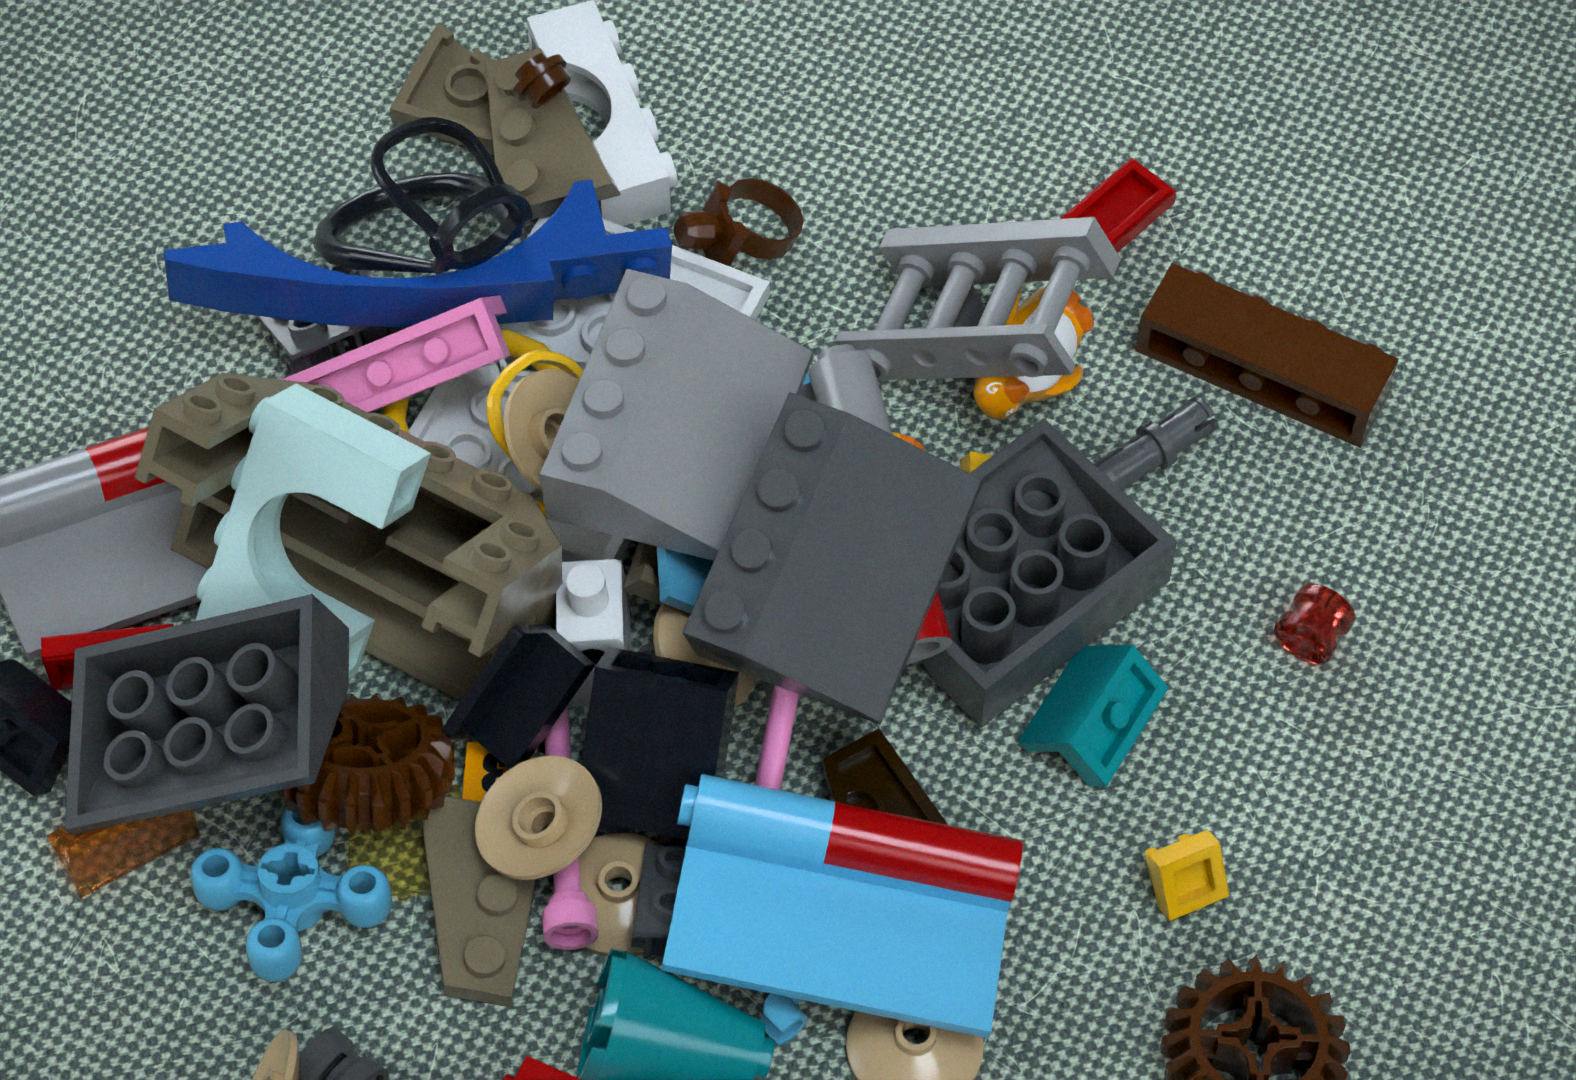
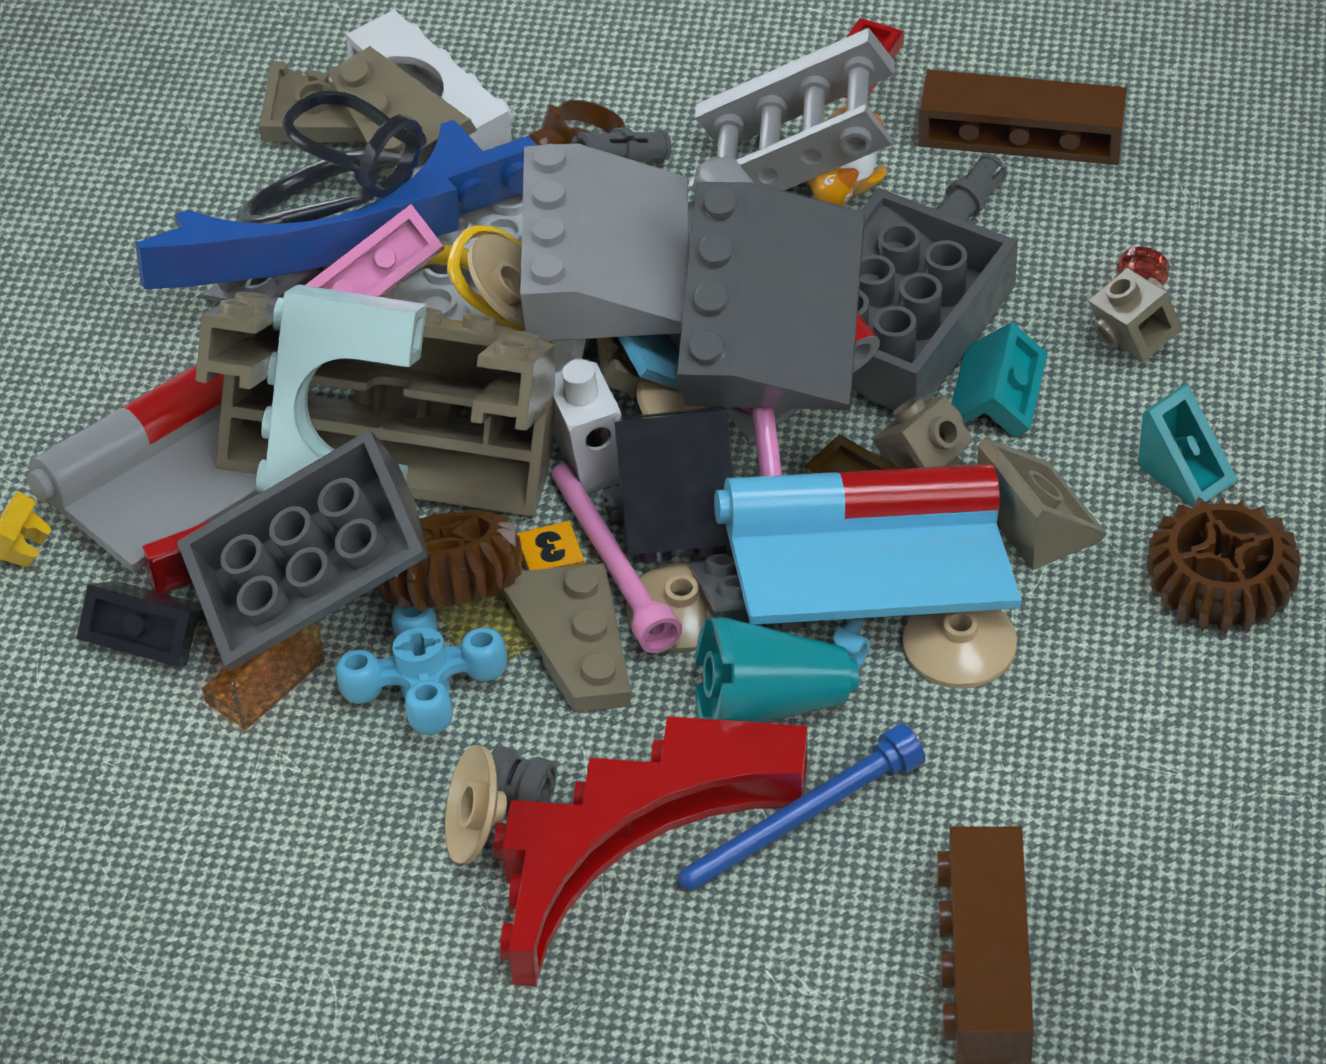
camera: 15 degrees left, 10 degrees down
(520, 693) = (554, 474): black panel -> none
(526, 801) = (603, 555): tan dish -> none
(541, 79) = (385, 60): reddish brown plate -> none
(781, 261) = (628, 144): none -> dark grey pin
(971, 768) = (924, 435): none -> dark tan brick
(1073, 894) = (1038, 506): none -> dark tan slope
(1187, 874) = (1118, 466): yellow tile -> none
(1272, 879) = (1182, 449): none -> teal slope
(1285, 675) = (1135, 314): none -> dark tan brick

